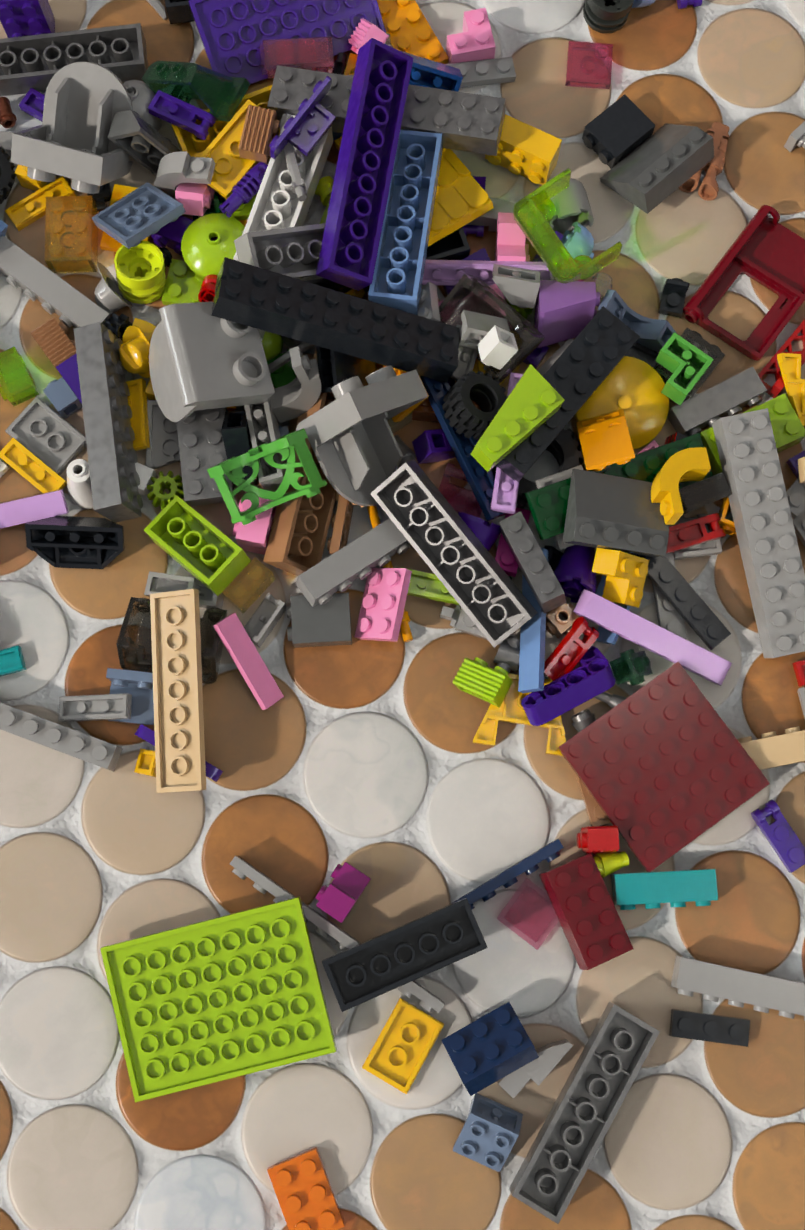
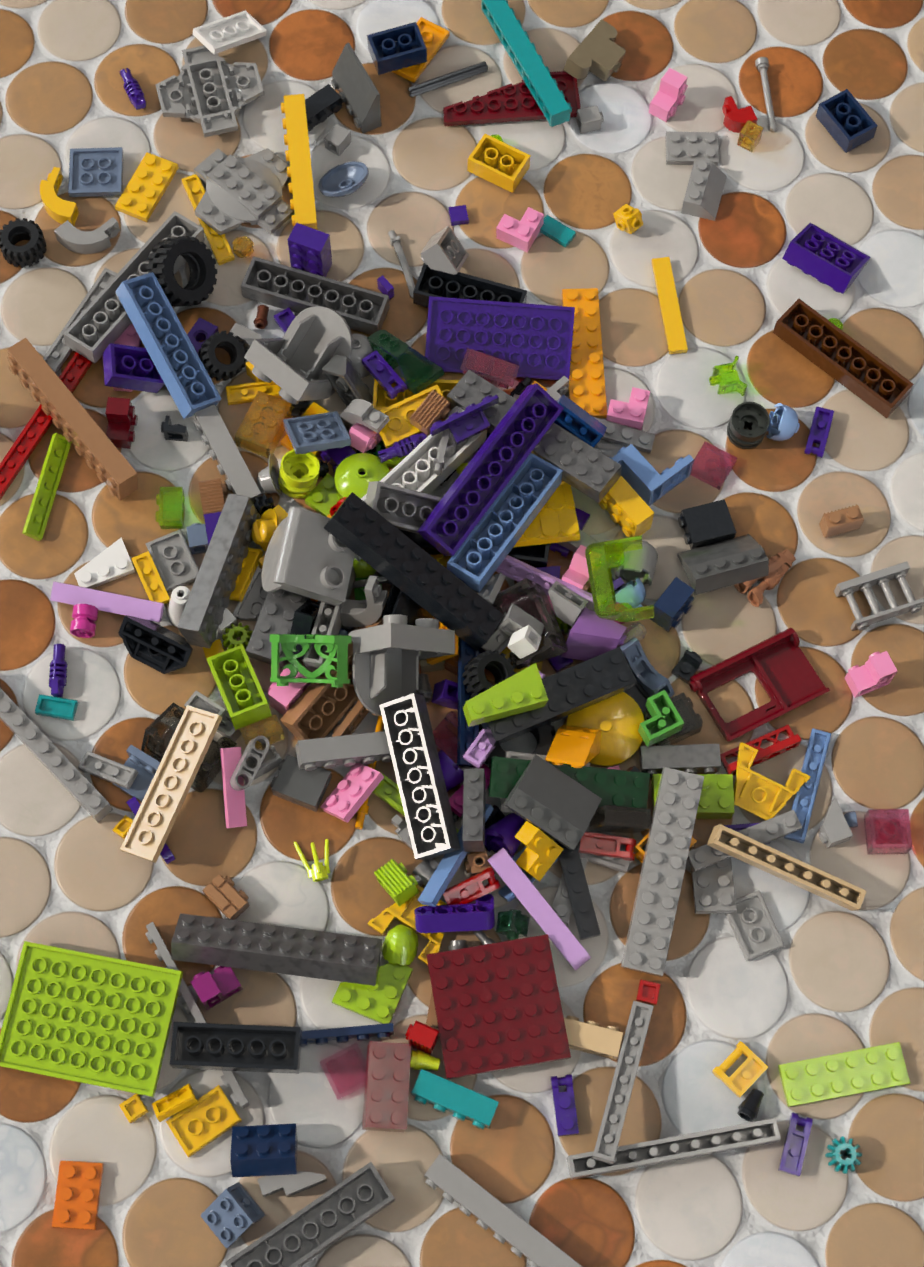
camera: 25 degrees right, 10 degrees down
(129, 16) = (385, 287): none -> dark purple tile
(148, 514) = (216, 648): none -> yellow tile
(248, 635) = (256, 756): none -> light grey beam
(302, 787) = (226, 897): none -> medium nougat brick
(318, 1070) = (133, 1108): none -> yellow tile
(361, 1043) = (174, 1102): none -> yellow plate
(364, 32) = (550, 376): bright pink brick -> none
(389, 708) = (319, 871): none -> neon yellow plant
(389, 820) = (276, 949): none -> flat silver brick
(518, 812) = (376, 1001): none -> lime plate
(520, 749) = (400, 945): none -> lime hair
(529, 104) = (644, 477): none -> medium blue bracket
(630, 230) = (672, 604): none -> dark blue brick
(685, 465) = (618, 790): yellow arch -> none
(709, 1027) = (437, 1221): black plate -> none
(758, 65) = (841, 521): none -> medium nougat brick

